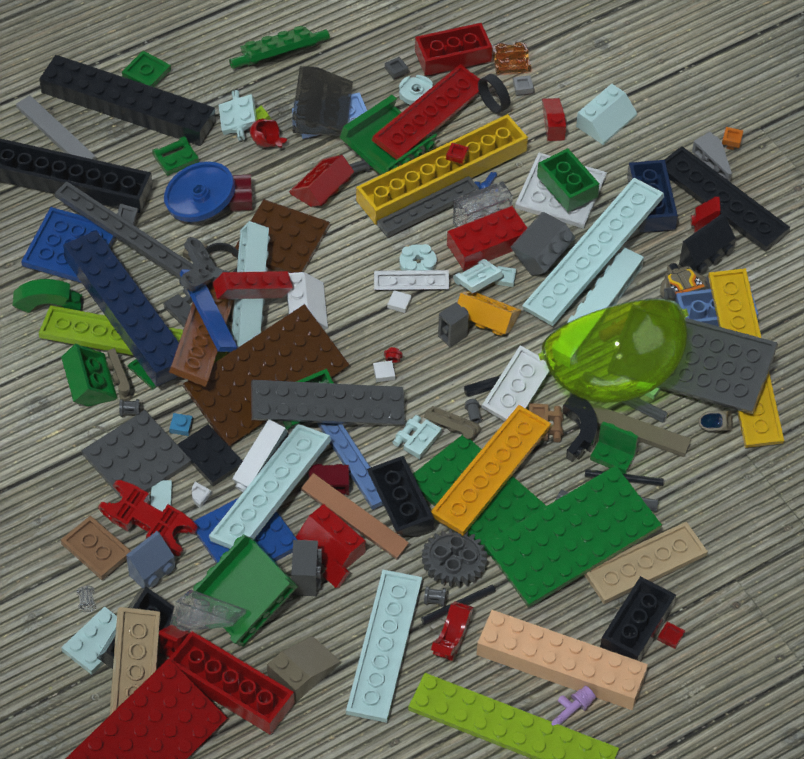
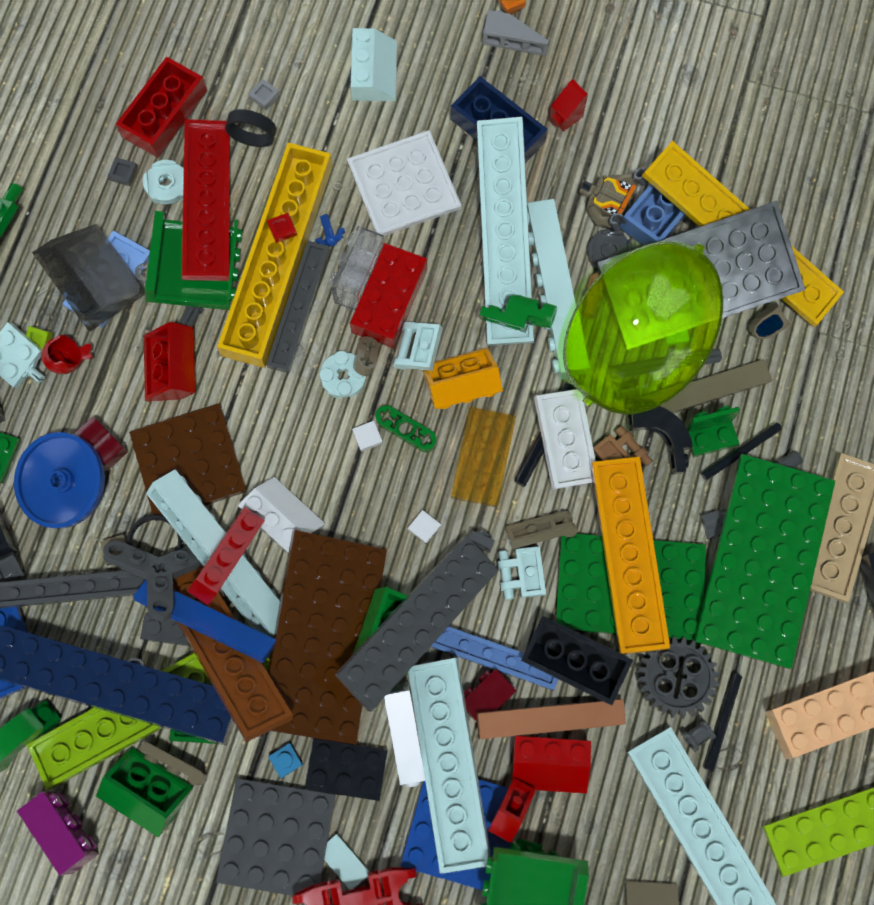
camera: 40 degrees left, 20 degrees up
(24, 355) = (58, 832): none -> magenta brick
(129, 407) = (218, 790): dark grey bush -> none
(200, 494) = (377, 823): white tile -> none
(279, 537) = (512, 810): none -> red slope
(306, 567) = (563, 822): dark grey brick -> none
(335, 573) = (588, 795): red tile -> none
(393, 354) = (418, 503): red plate -> none
(410, 401) = (482, 540): none -> dark grey plate
(411, 279) = (358, 403): white plate -> none
(427, 307) = (394, 414): none -> green beam
(437, 258) = (361, 354): none -> dark tan beam
(453, 324) = (449, 422): dark grey brick -> none
(453, 631) = (753, 766): red arch -> none
(458, 363) = (483, 457): none -> clear yellow plate
(472, 407) = (547, 499): dark grey pin -> none
(508, 277) = (441, 317): light aqua tile -> none
(511, 58) = (224, 72): clear orange slope -> none
(542, 243) = (450, 261): dark grey slope -> none
(554, 119) = (327, 108): red slope -> none
(556, 298) = (519, 312): none -> green plate
(568, 180) = (410, 170): green brick -> none
(708, 245) = (599, 139): black slope -> none
(738, 207) = (552, 70): black plate -> none

